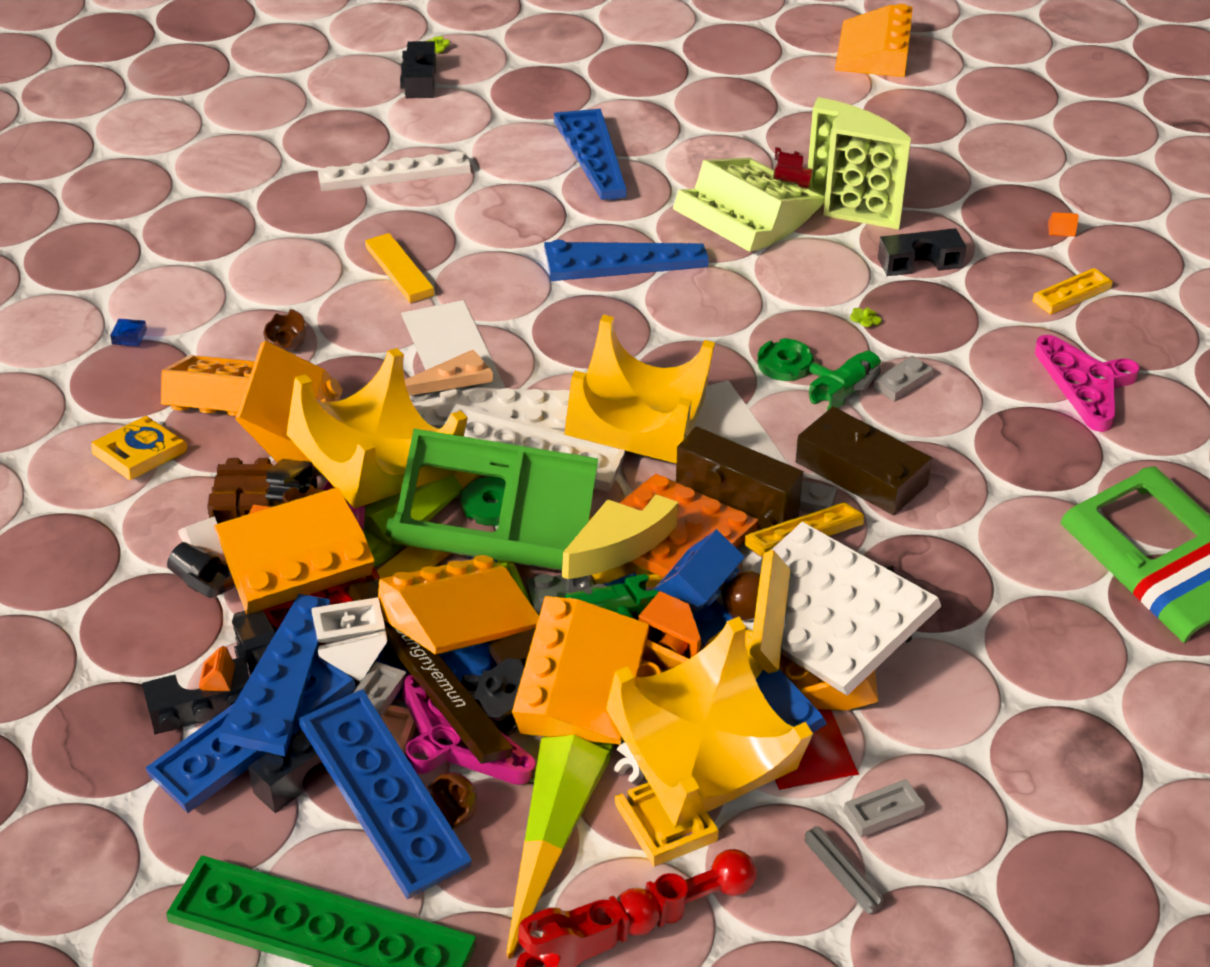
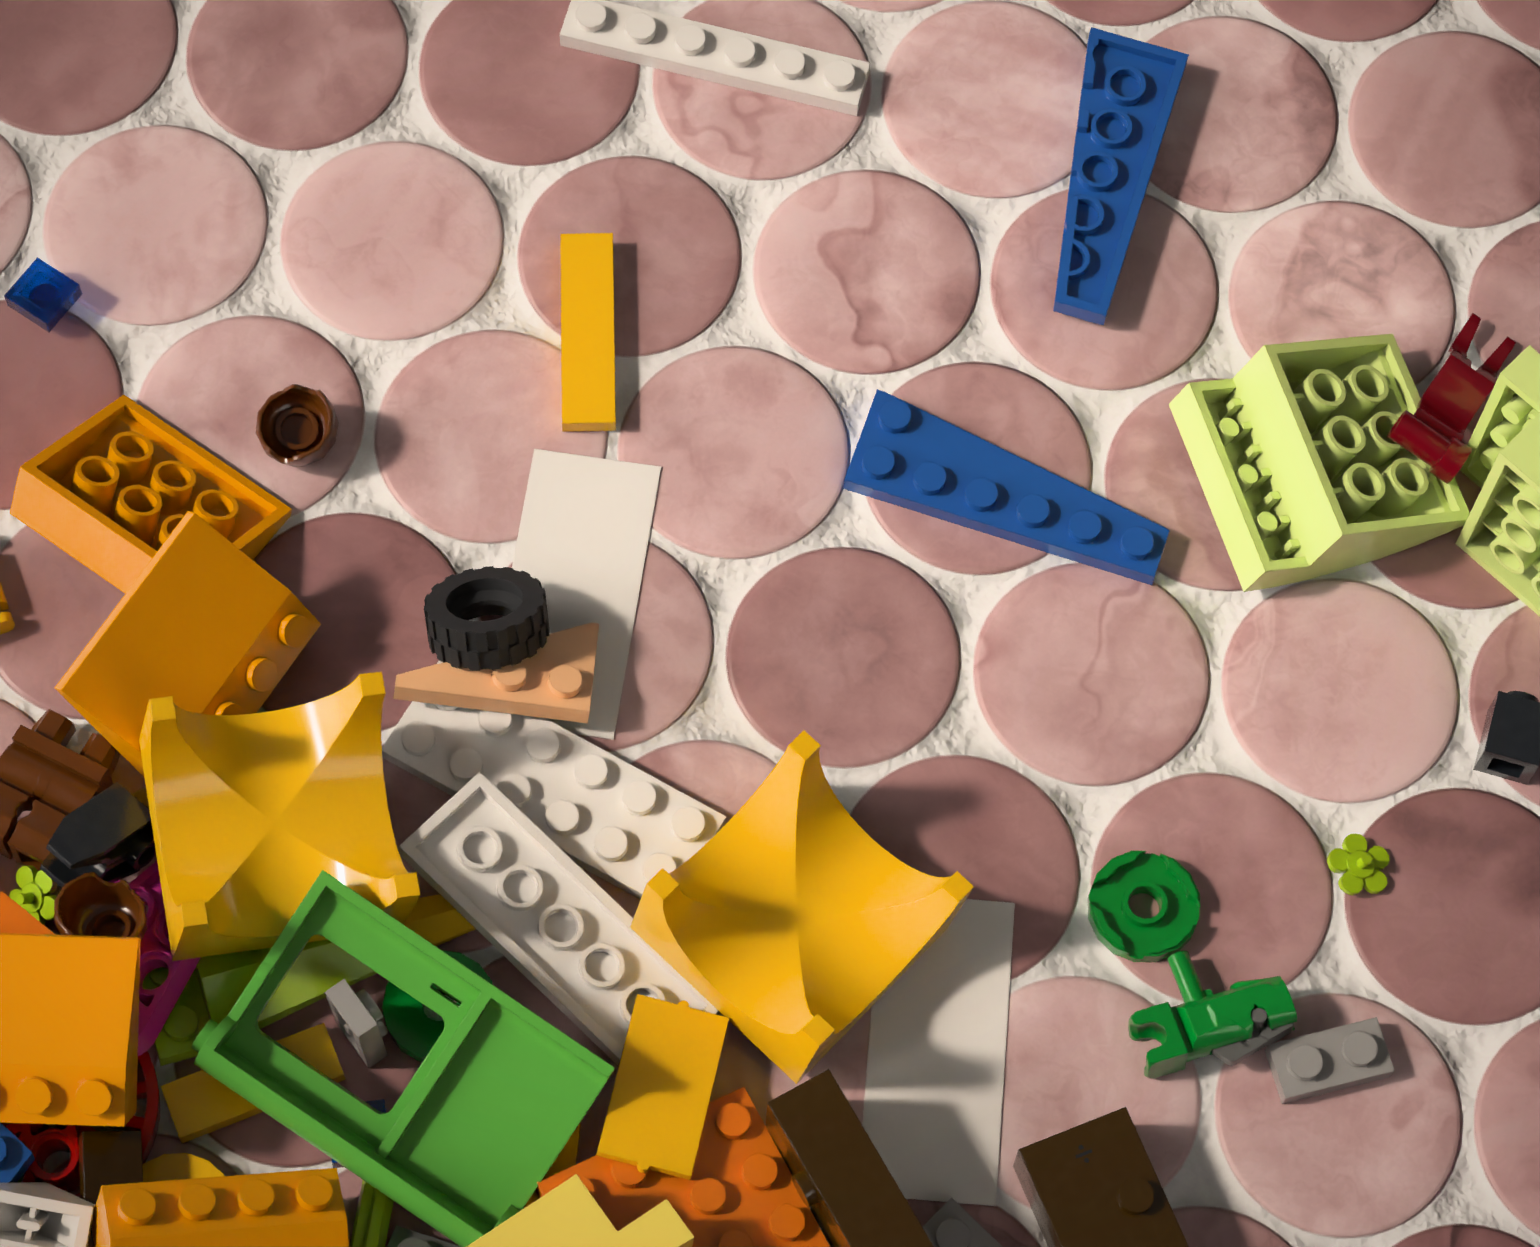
camera: 25 degrees right, 25 degrees up
(427, 355) = (489, 642): none -> black tyre
(458, 503) = (359, 1021): none -> light grey plate
(621, 477) = (663, 1087): none -> yellow piece

